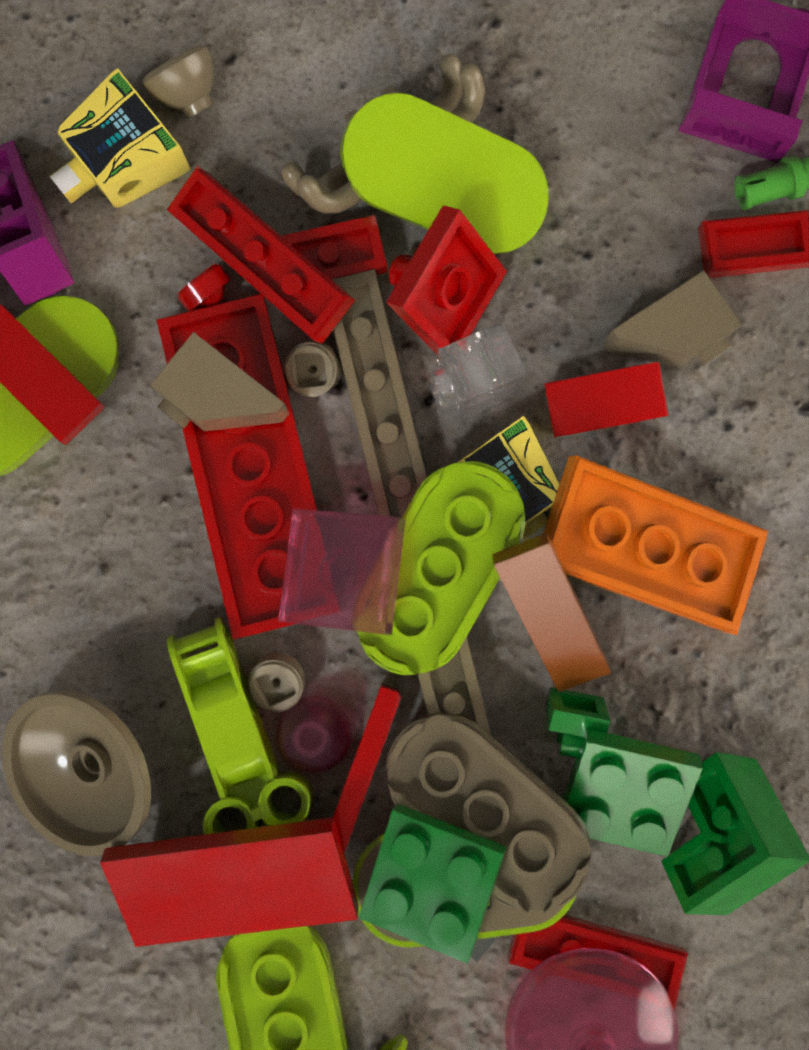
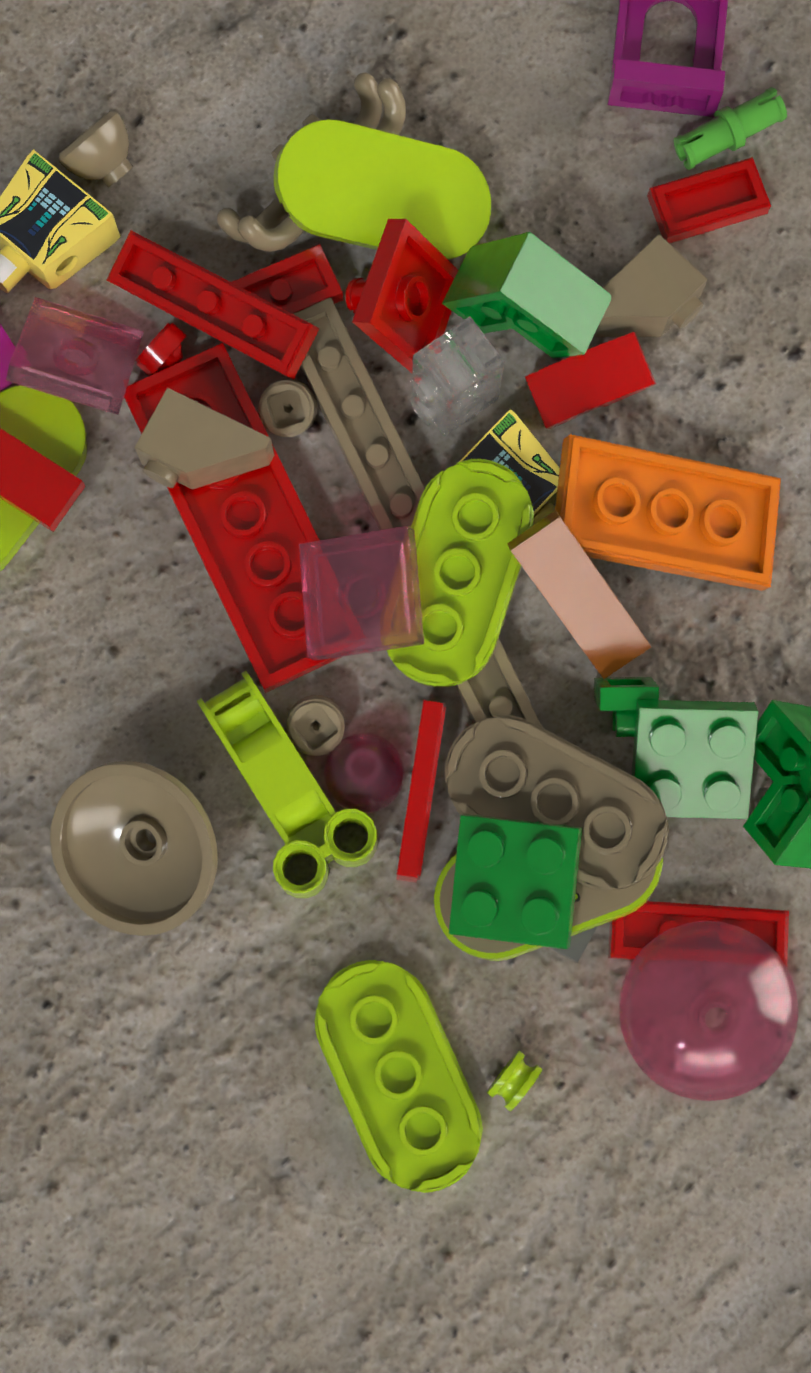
camera: 10 degrees left, 5 degrees down
(116, 280) = (75, 356): none -> clear pink tile
(232, 882) = (314, 924): red tile -> none
(566, 302) = (531, 290): none -> panel

